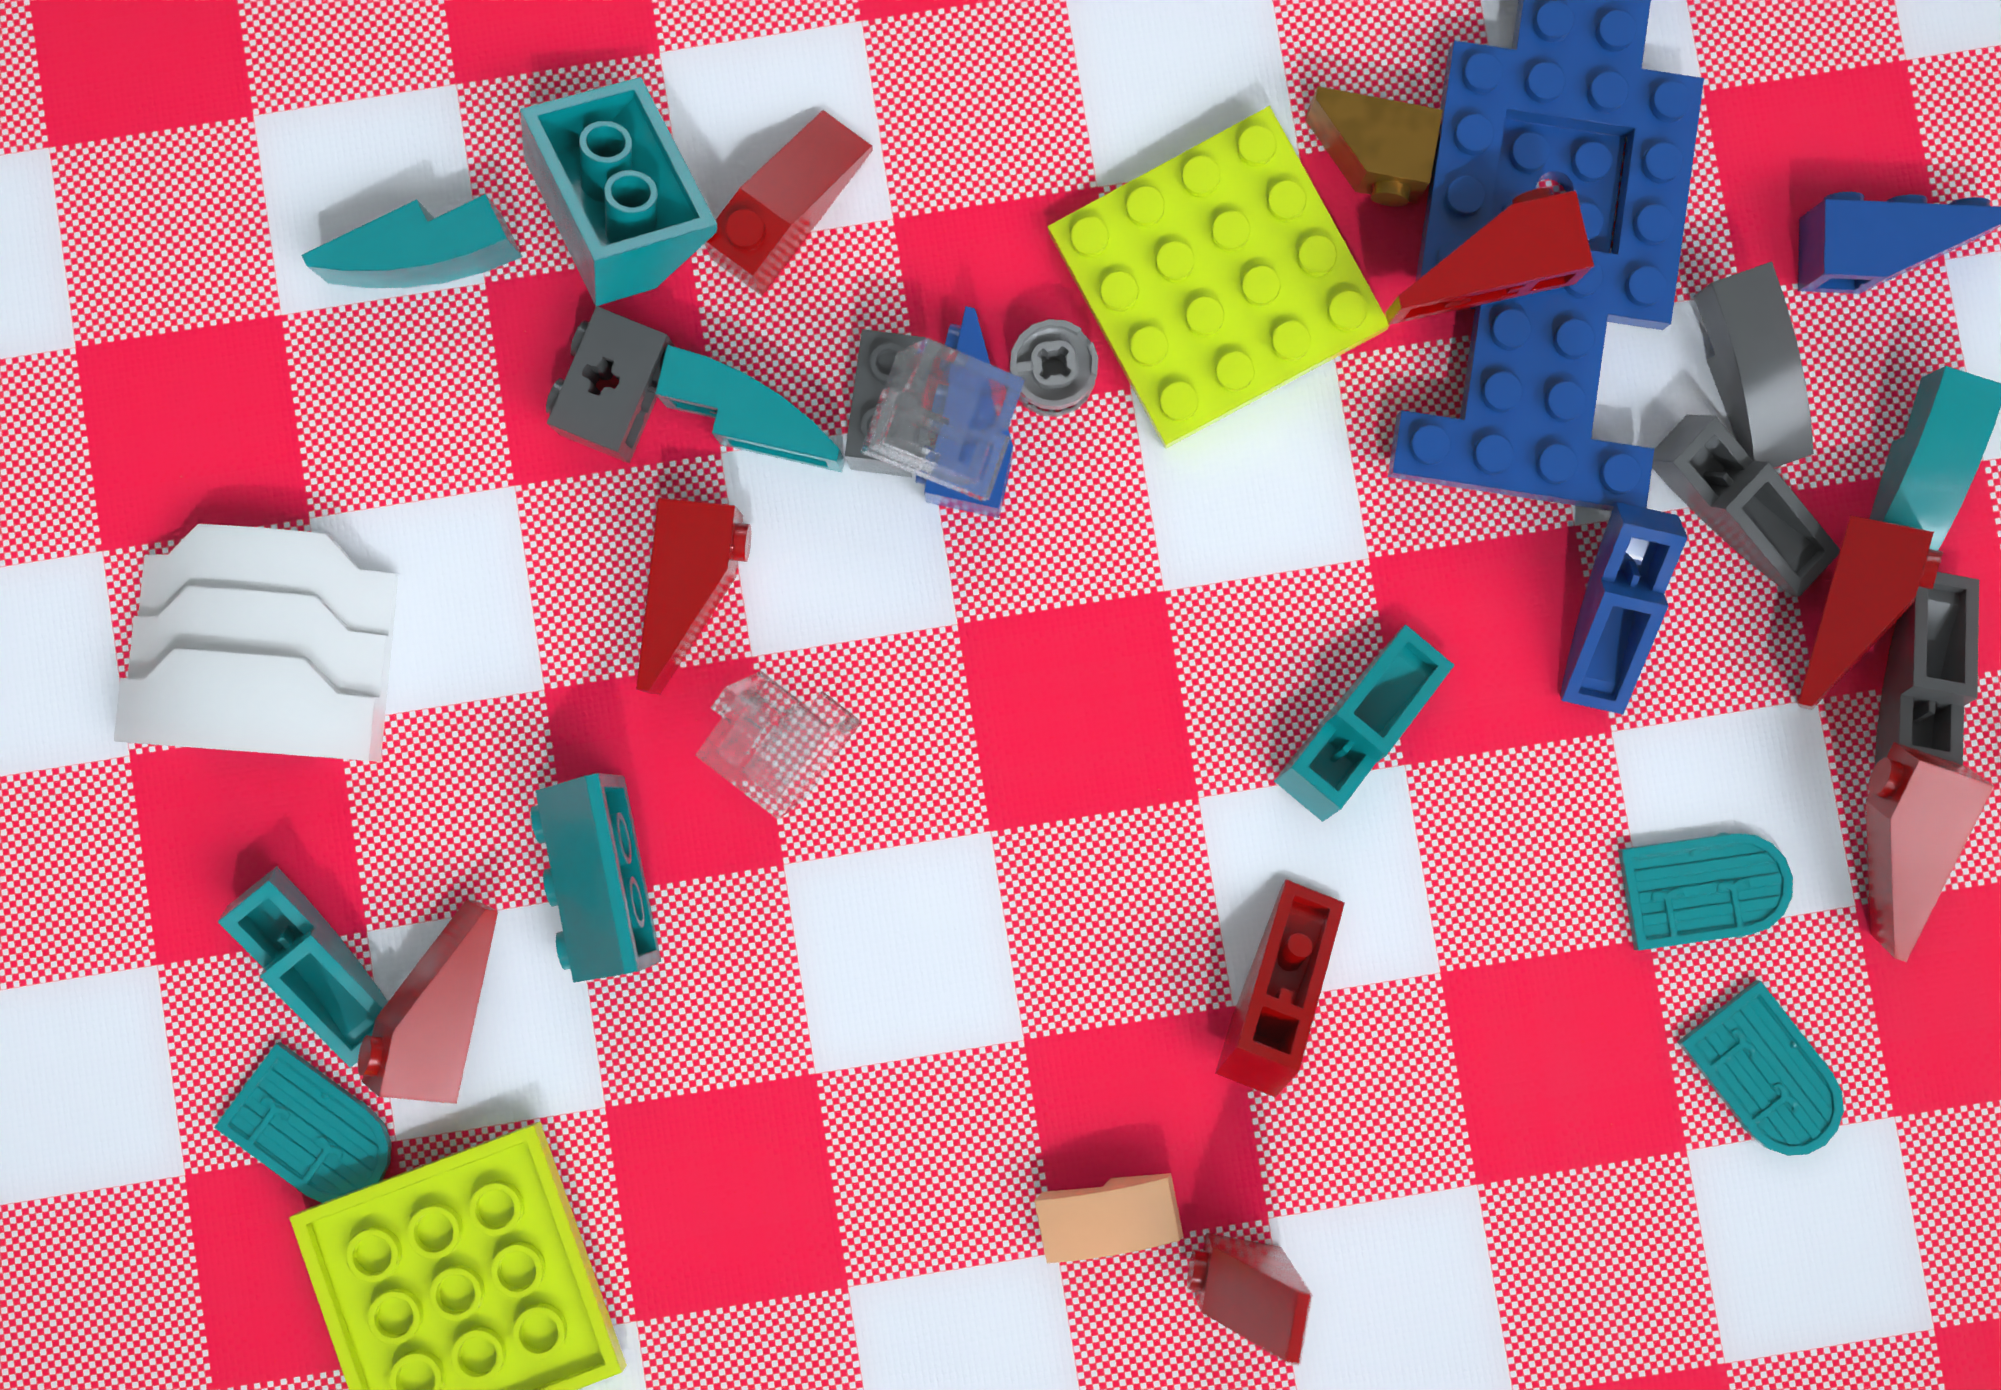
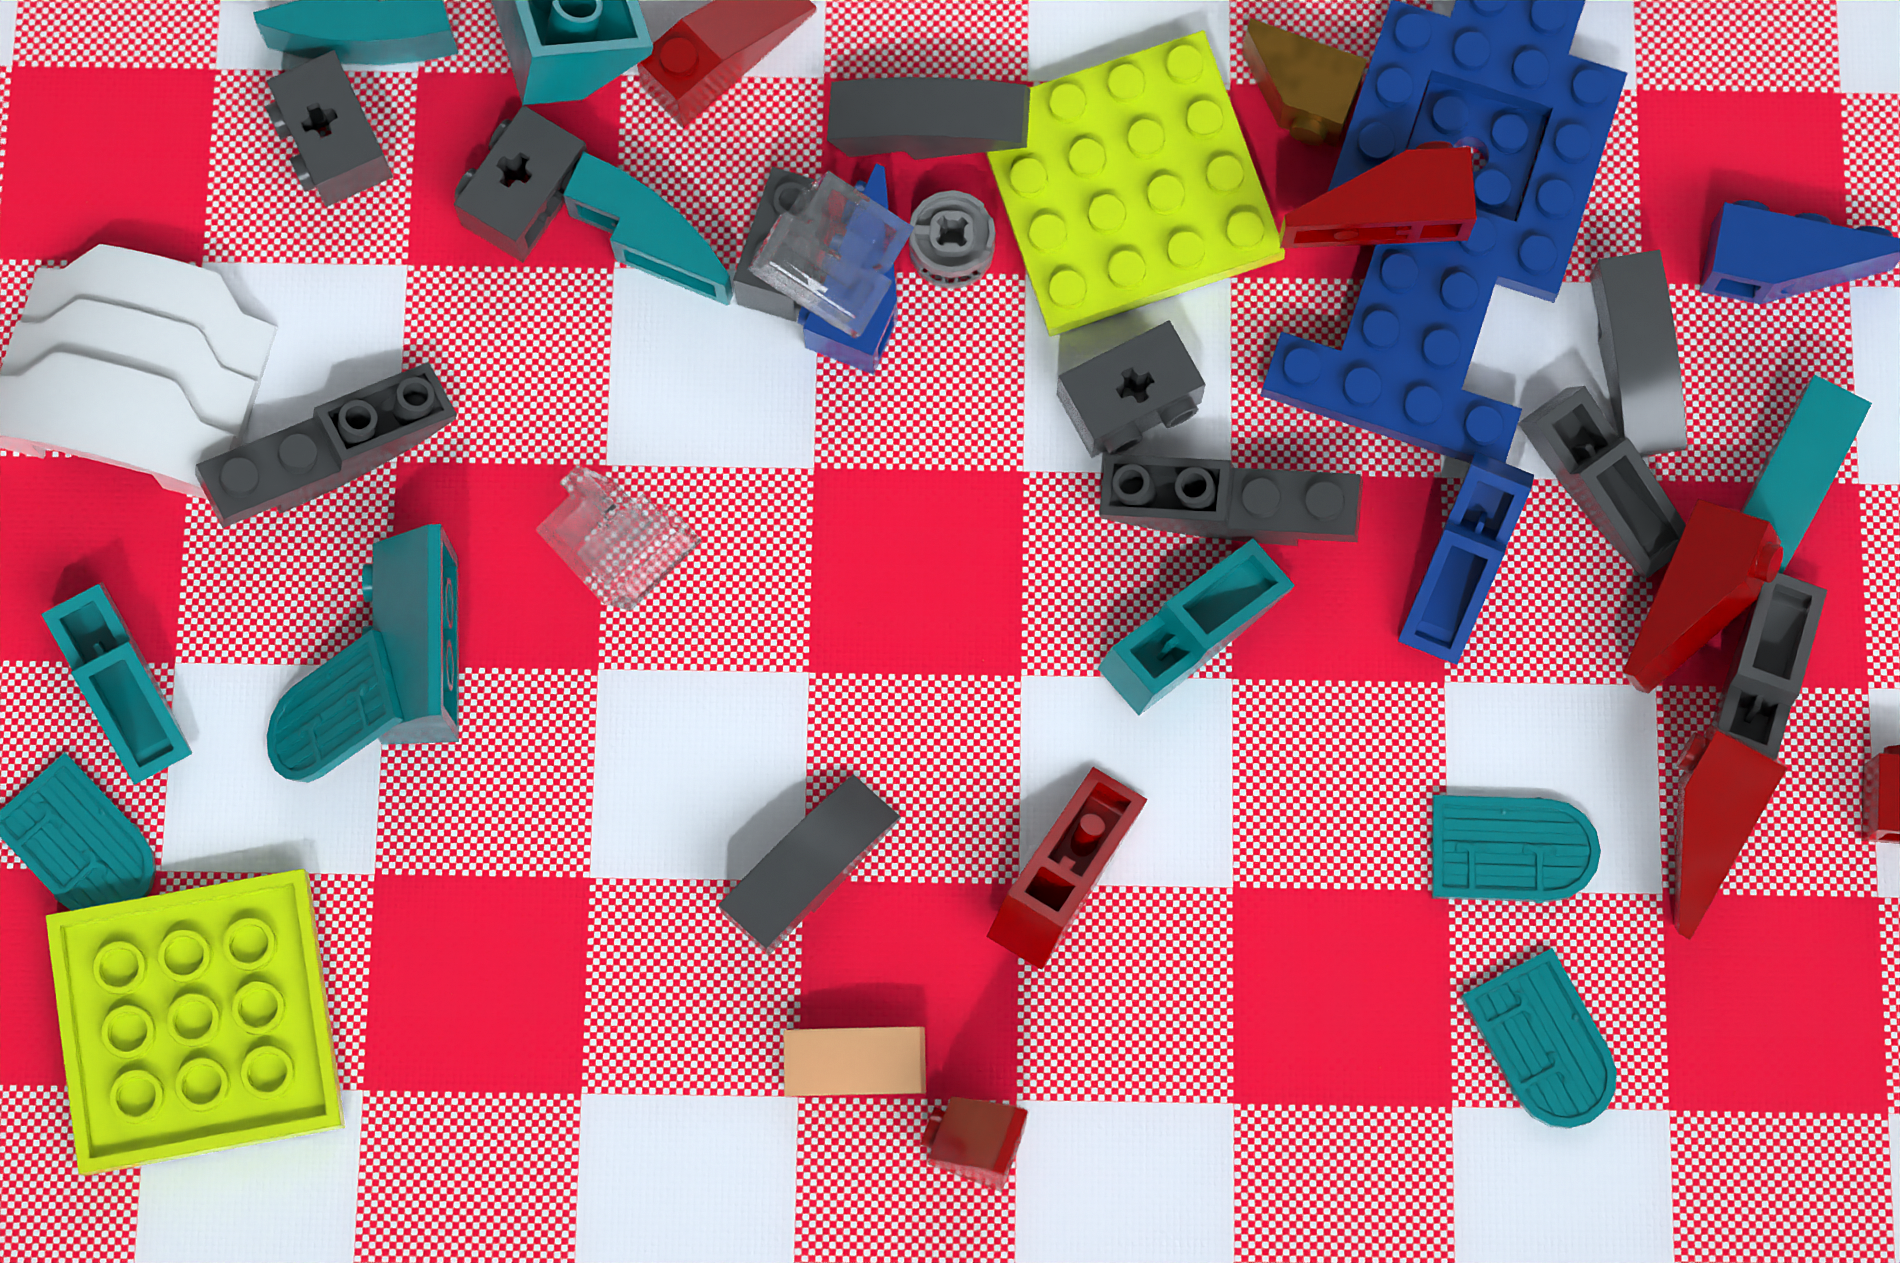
camera: 10 degrees right, 10 degrees down
(383, 332) = (318, 97): none -> dark grey brick
(429, 1021) = (220, 753): slope -> none
(469, 695) = (328, 450): none -> dark grey slope
(535, 966) = (334, 711): none -> teal window
(689, 574) = (560, 376): red slope -> none
(1008, 245) = (927, 116): none -> dark grey slope
(1028, 1032) = (808, 864): none -> dark grey slope
(1278, 462) = (1146, 363): none -> dark grey brick
(1380, 590) = (1230, 502): none -> dark grey slope

